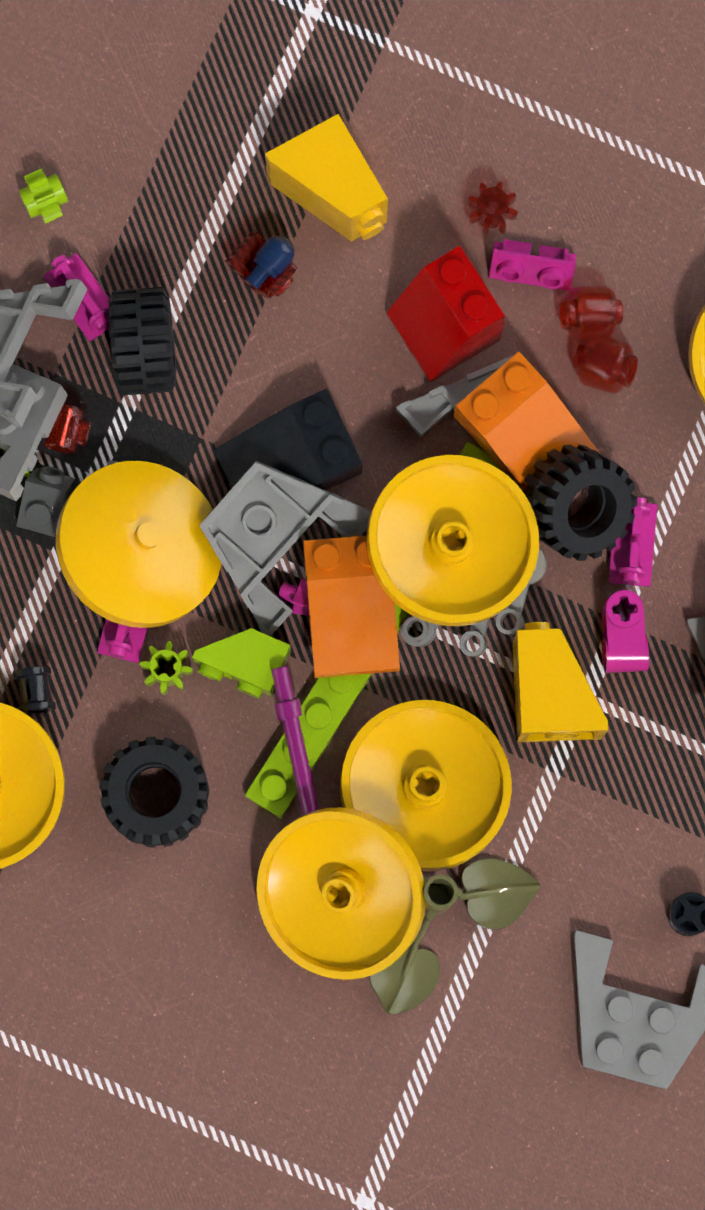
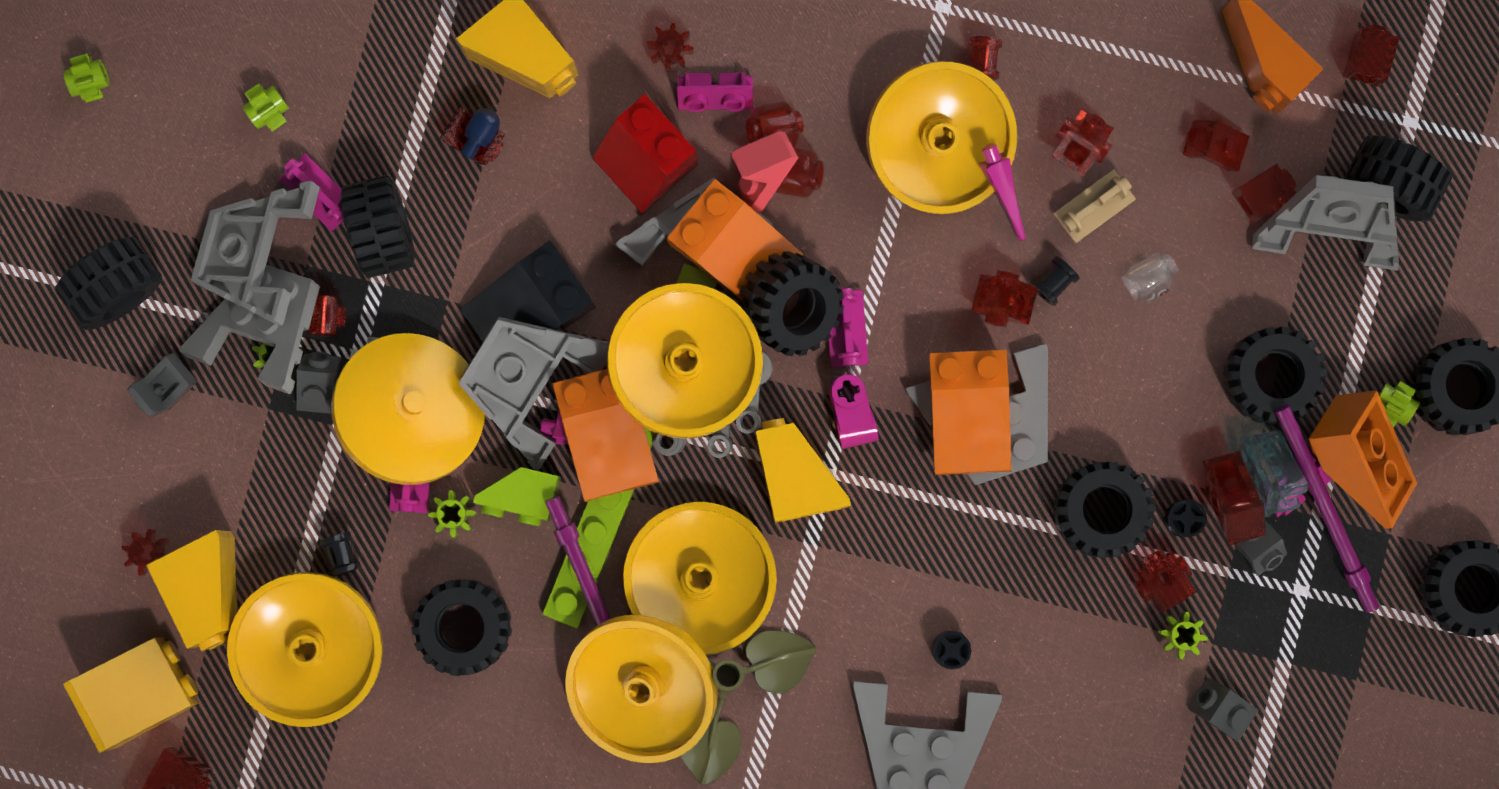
camera: 10 degrees left, 5 degrees up
(573, 351) = (763, 168): none -> coral slope

